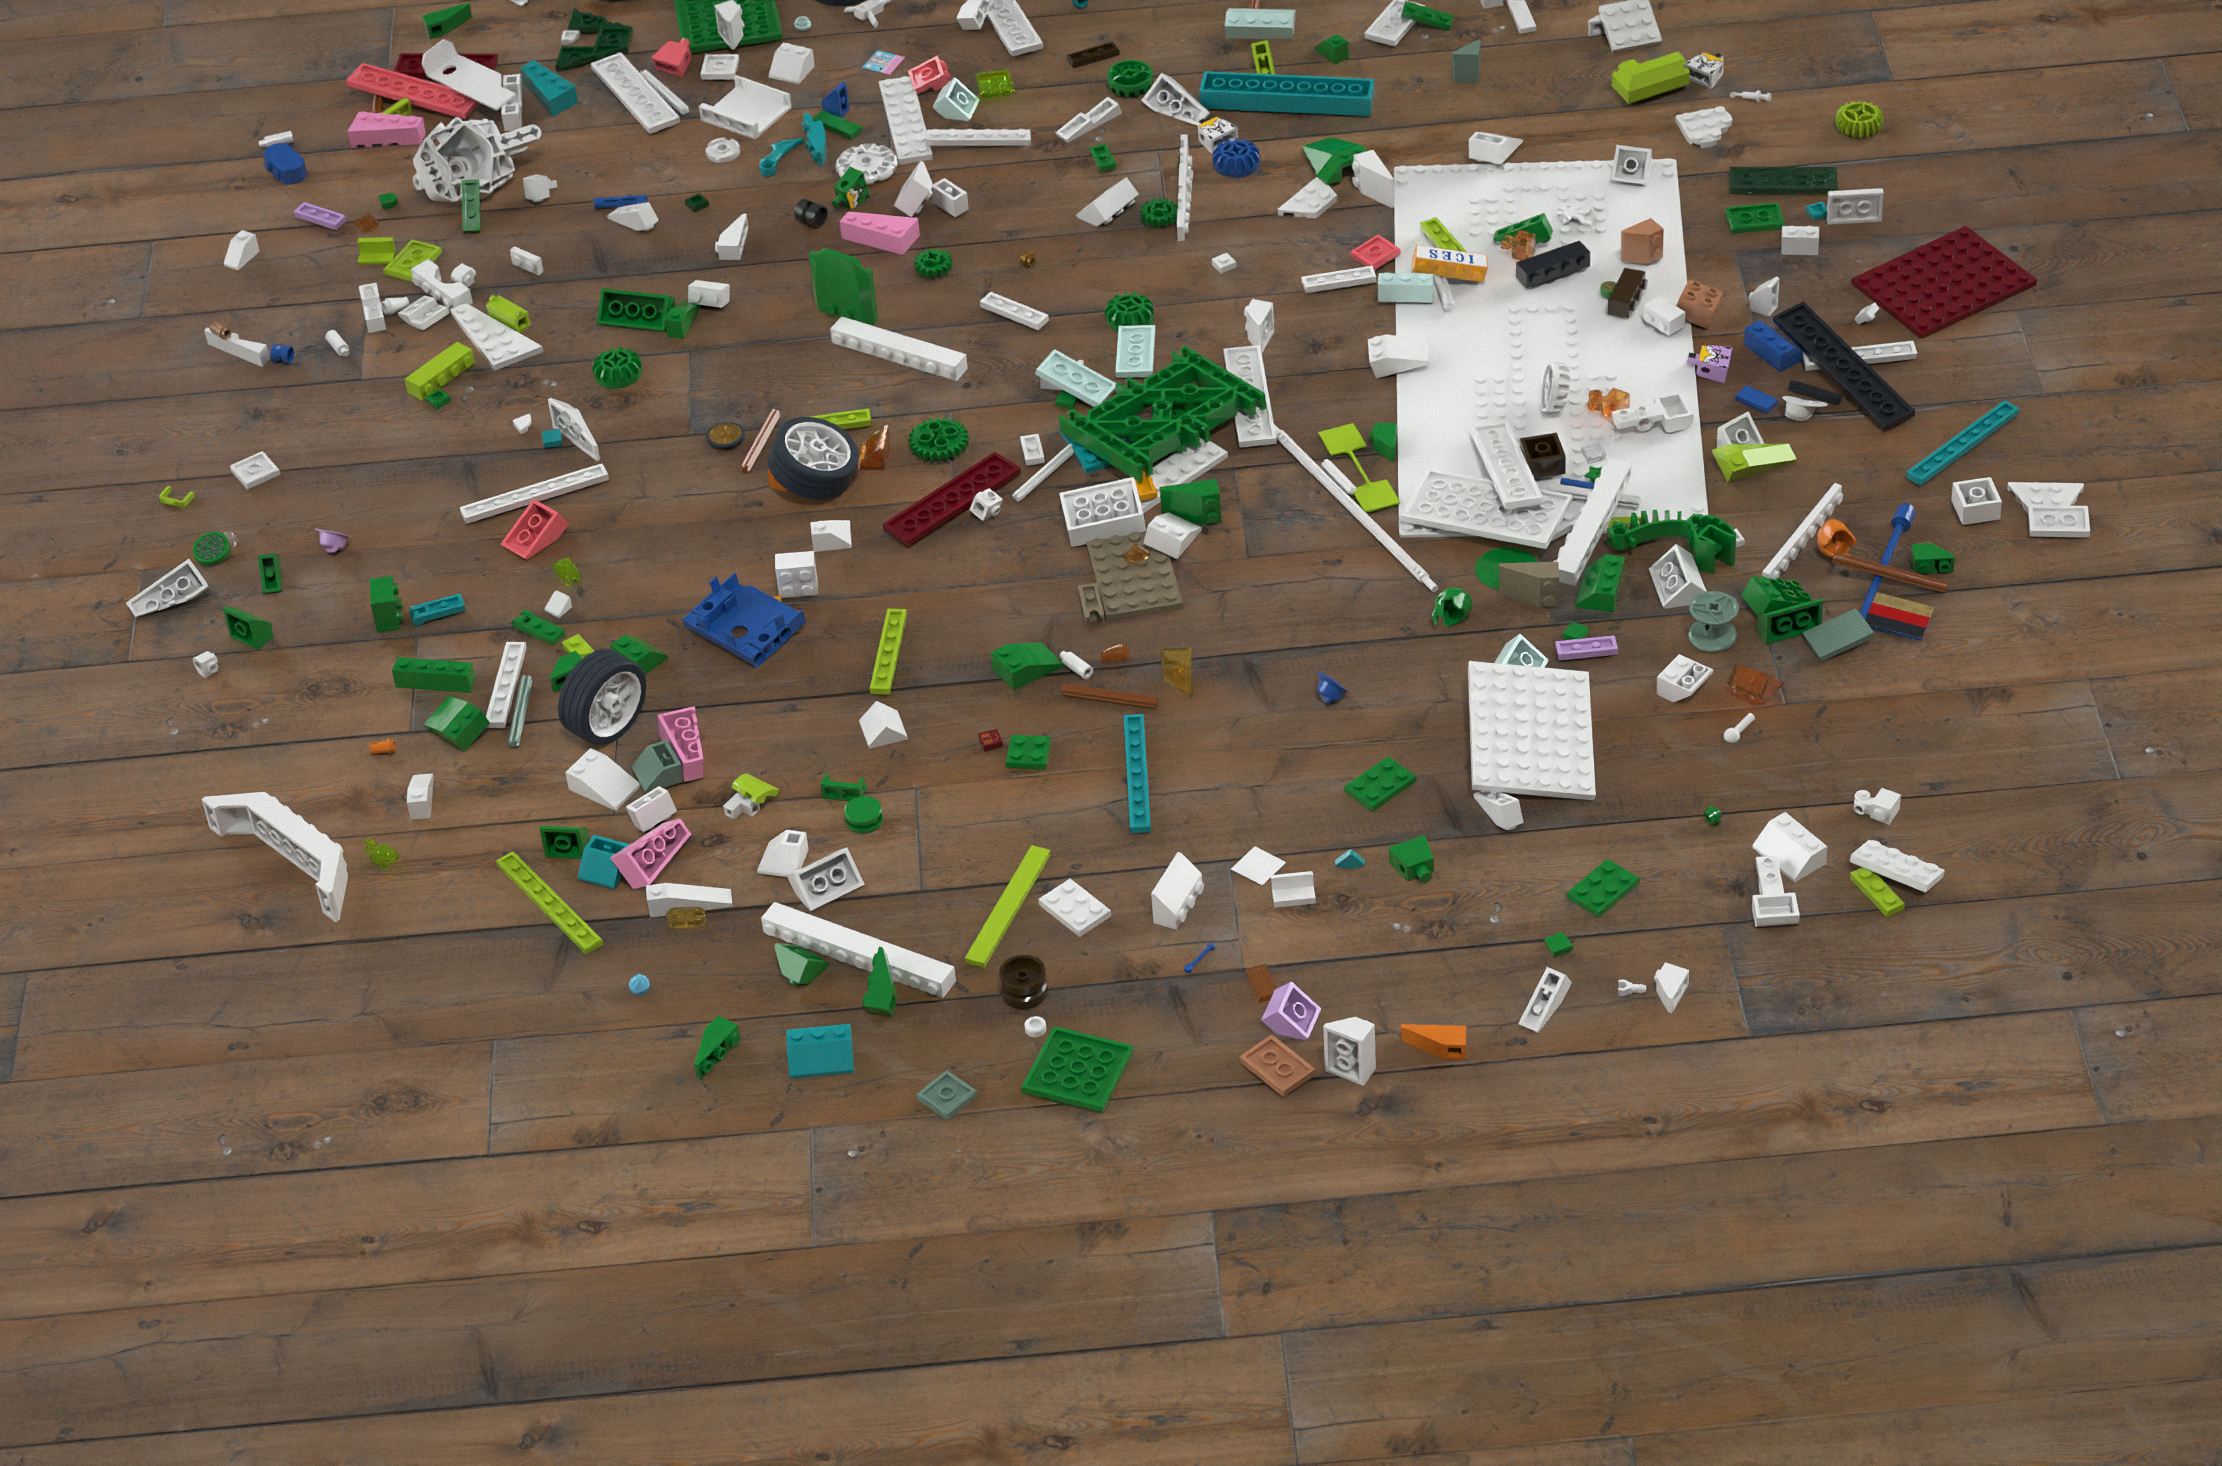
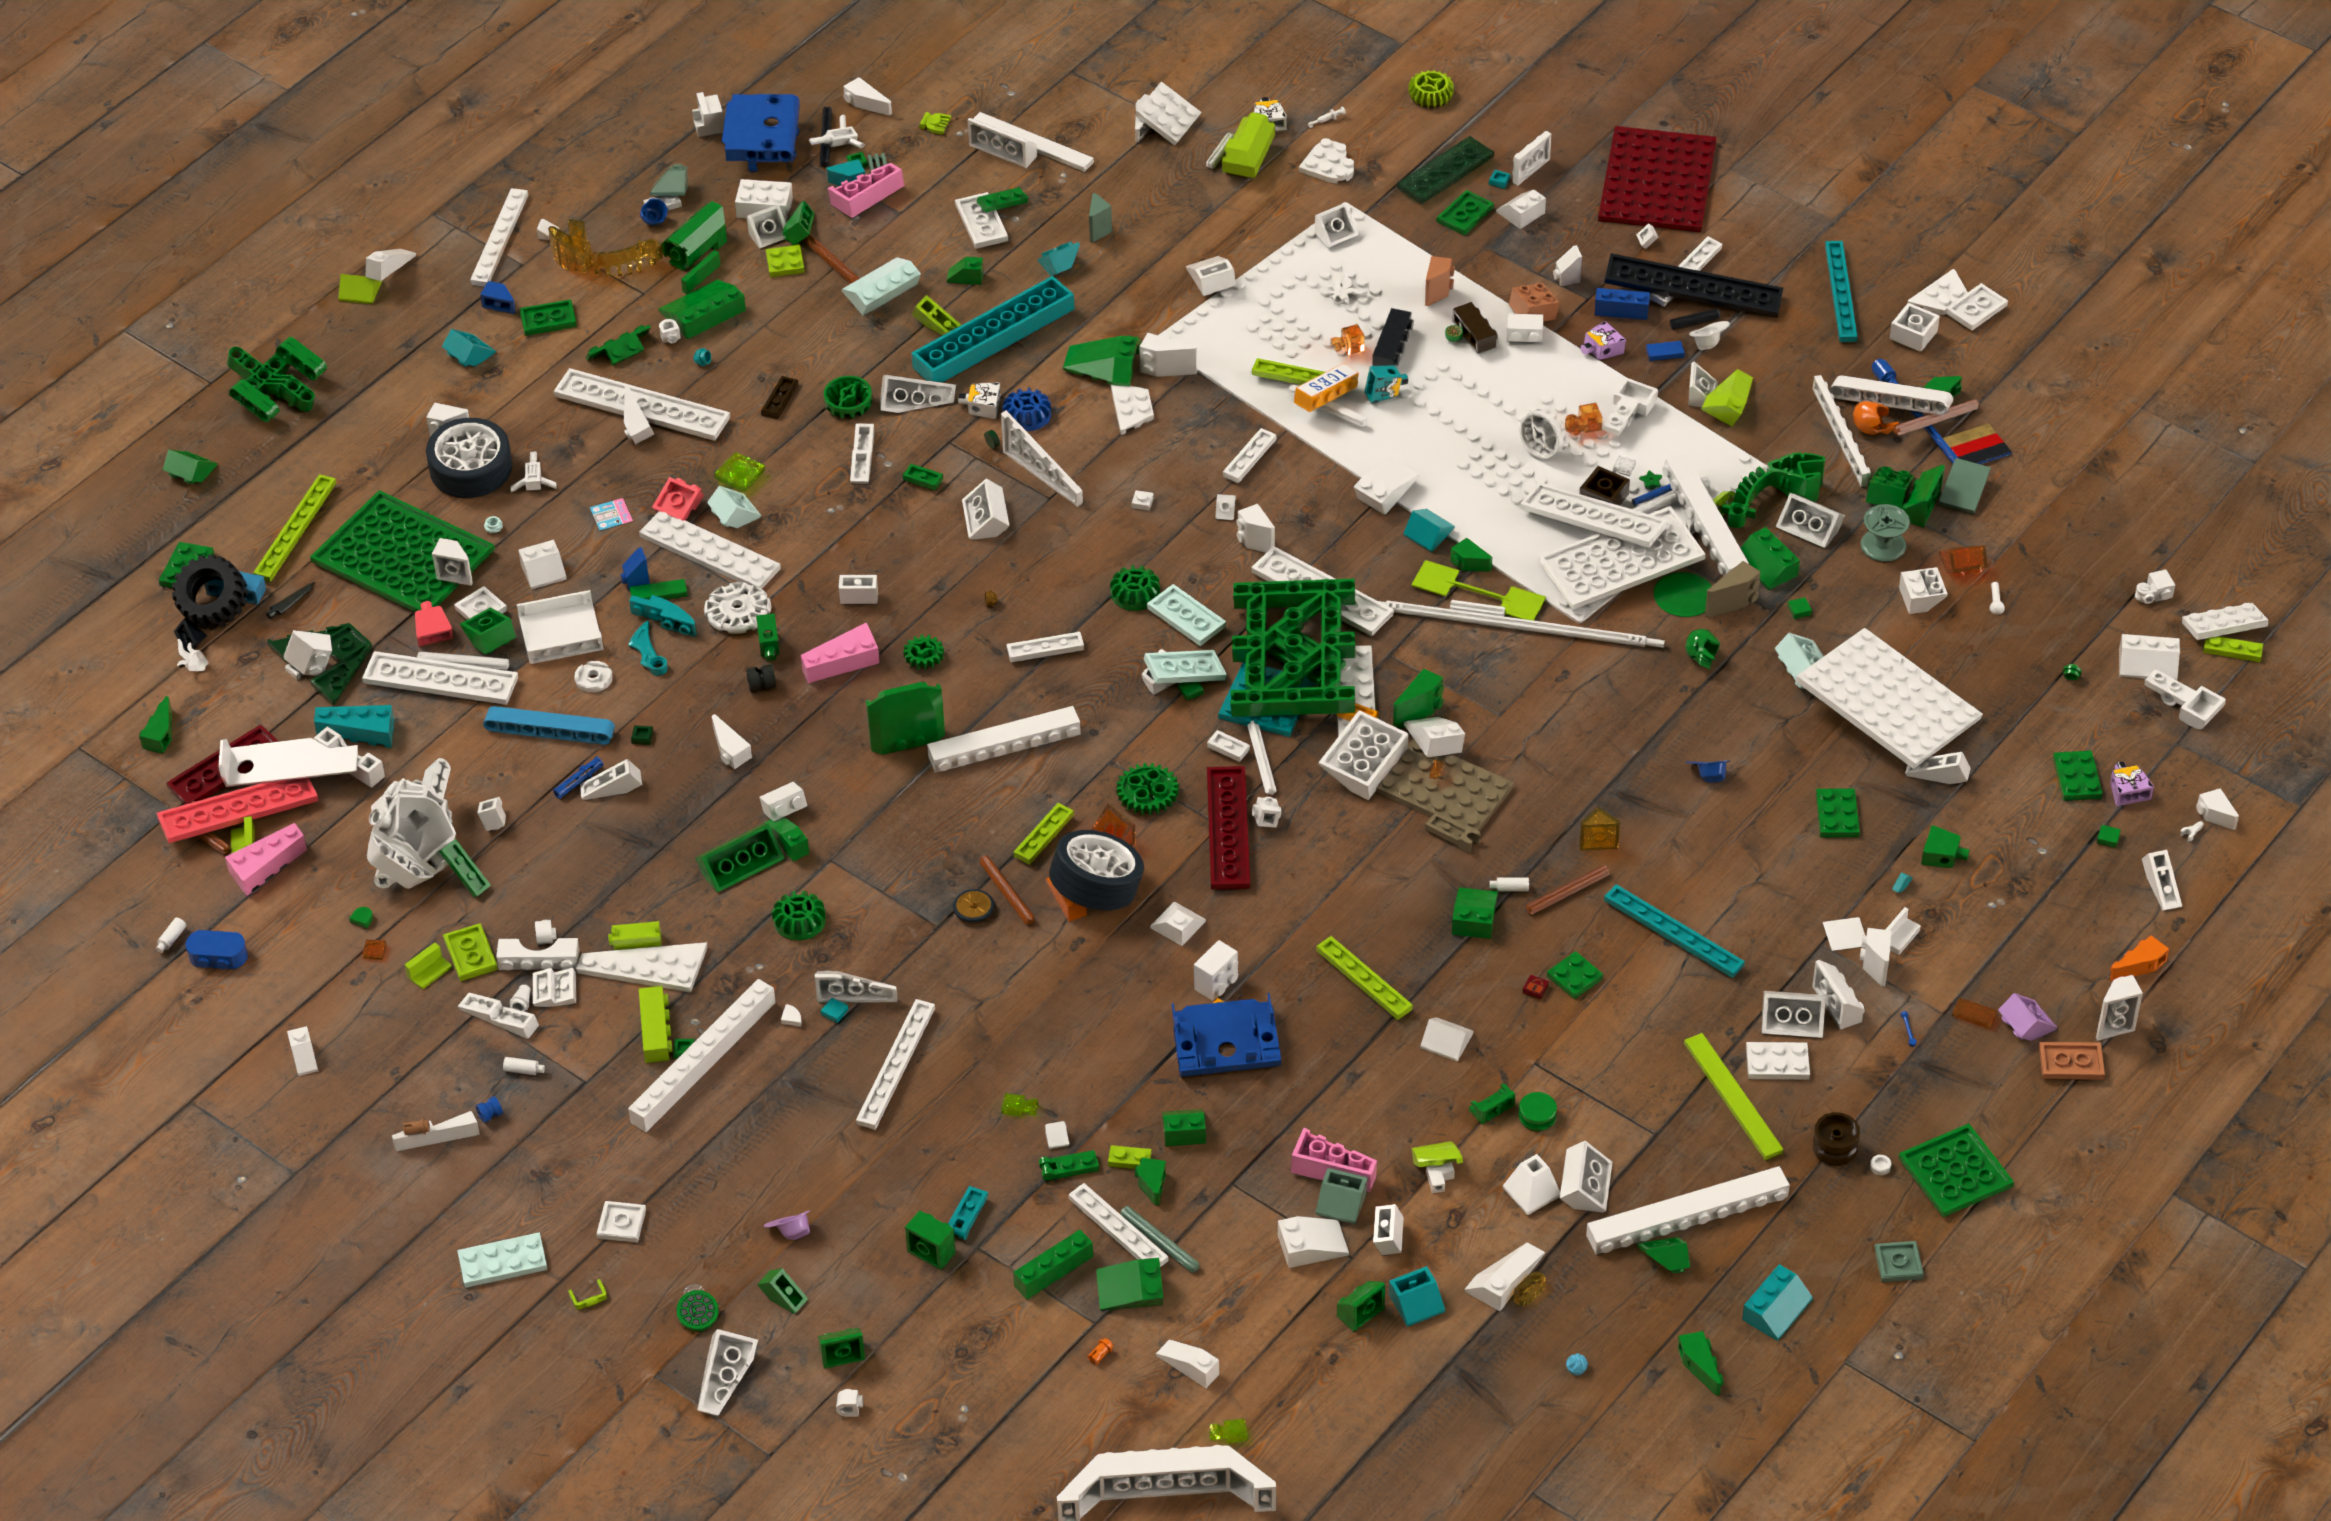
camera: 50 degrees left, 5 degrees up
(164, 443) = (502, 1260): none -> light aqua plate
(320, 216) = (324, 972): lavender plate -> none
(436, 407) = (702, 1055): none -> white brick
(526, 260) = (578, 882): white plate -> none
(534, 530) = (947, 1093): coral slope -> none
(549, 902) = (1413, 1361): lime tile -> none
(578, 26) = (308, 652): none -> white slope
(602, 697) = (1244, 1172): black wheel -> none
(650, 853) = (1444, 1259): bright pink wedge -> none
(651, 160) = (549, 725): none -> dark azure beam
(699, 81) = (488, 630): none -> green slope
(881, 991) = (1756, 1222): green slope -> none
(915, 191) = (822, 600): white slope -> none
(978, 137) = (798, 525): white plate -> none
(1117, 652) = (1526, 853): clear orange cone -> none
(1127, 883) = (1793, 1014): none -> white slope
(1159, 212) = (1037, 492): green gear -> none
(1245, 888) = (1876, 954): none -> white slope
(1273, 296) = (1225, 507): none -> white bracket
(1375, 252) = (1244, 416): coral tile -> none
(1386, 402) = (1427, 529): none -> teal slope
(1405, 287) = (1317, 428): light aqua brick -> none
(1406, 75) = (1059, 258): none -> teal slope
(1498, 286) = (1383, 383): none -> teal torso
(1535, 225) = (1342, 317): green slope -> none
(1586, 648) = (1824, 613): lavender plate -> none
(1627, 920) = (2130, 785): none -> lavender torso
(1875, 533) = (1891, 395): none -> white beam

